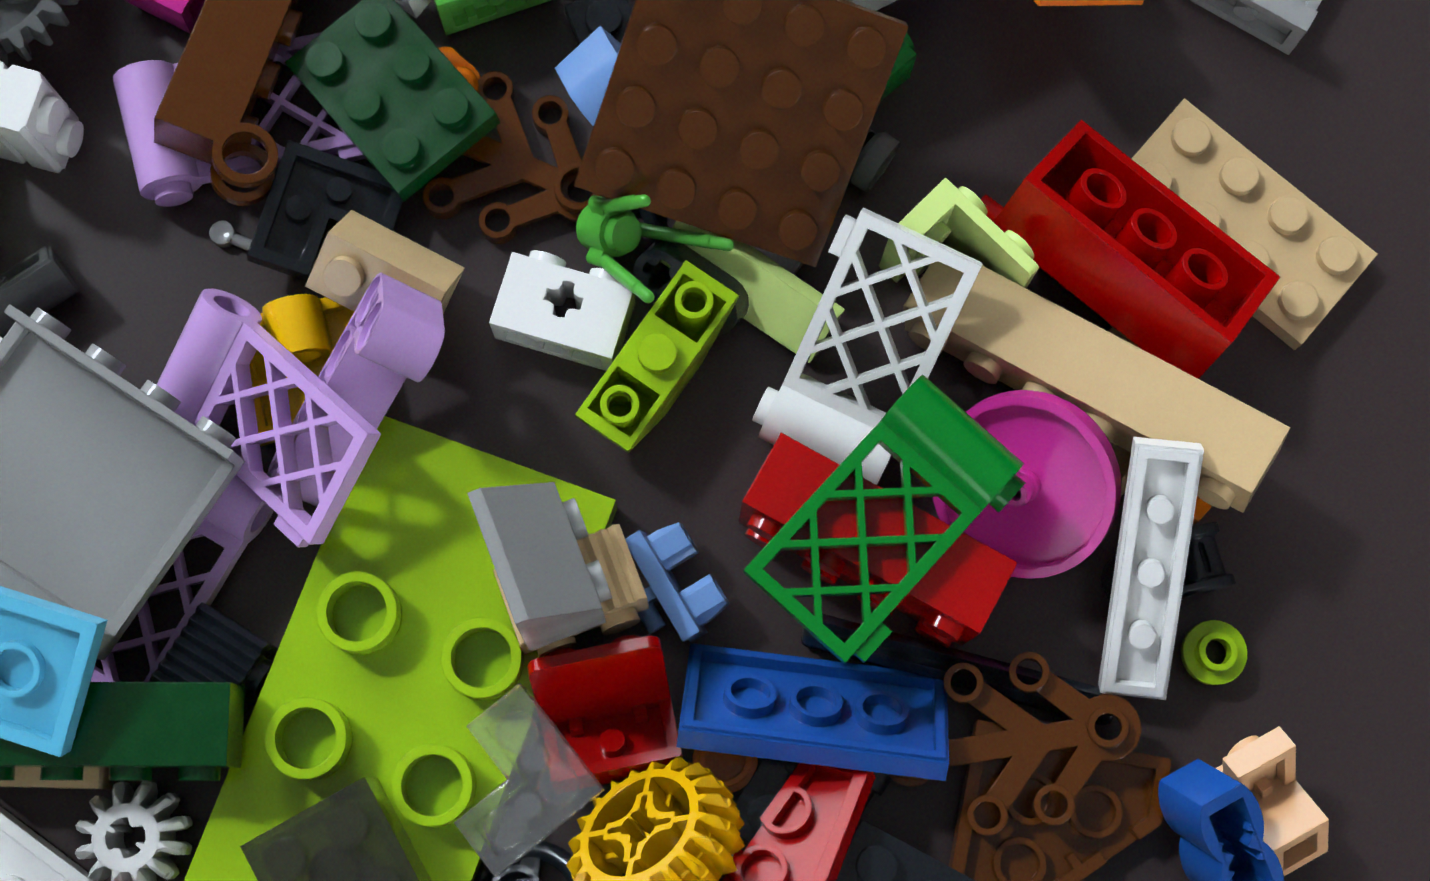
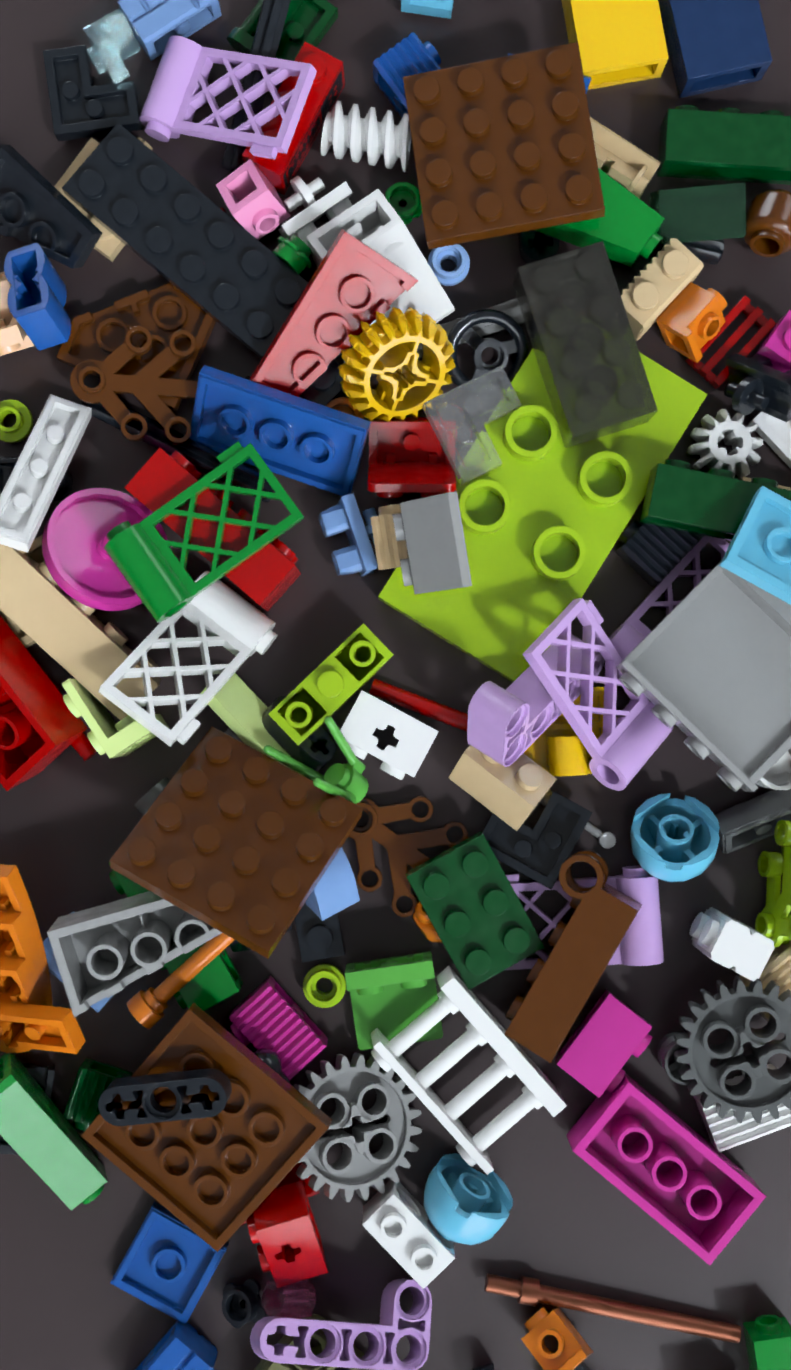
camera: 165 degrees left, 10 degrees up
(121, 244) = (674, 837): none -> medium azure cylinder
(519, 365) = (419, 704): none -> red bar

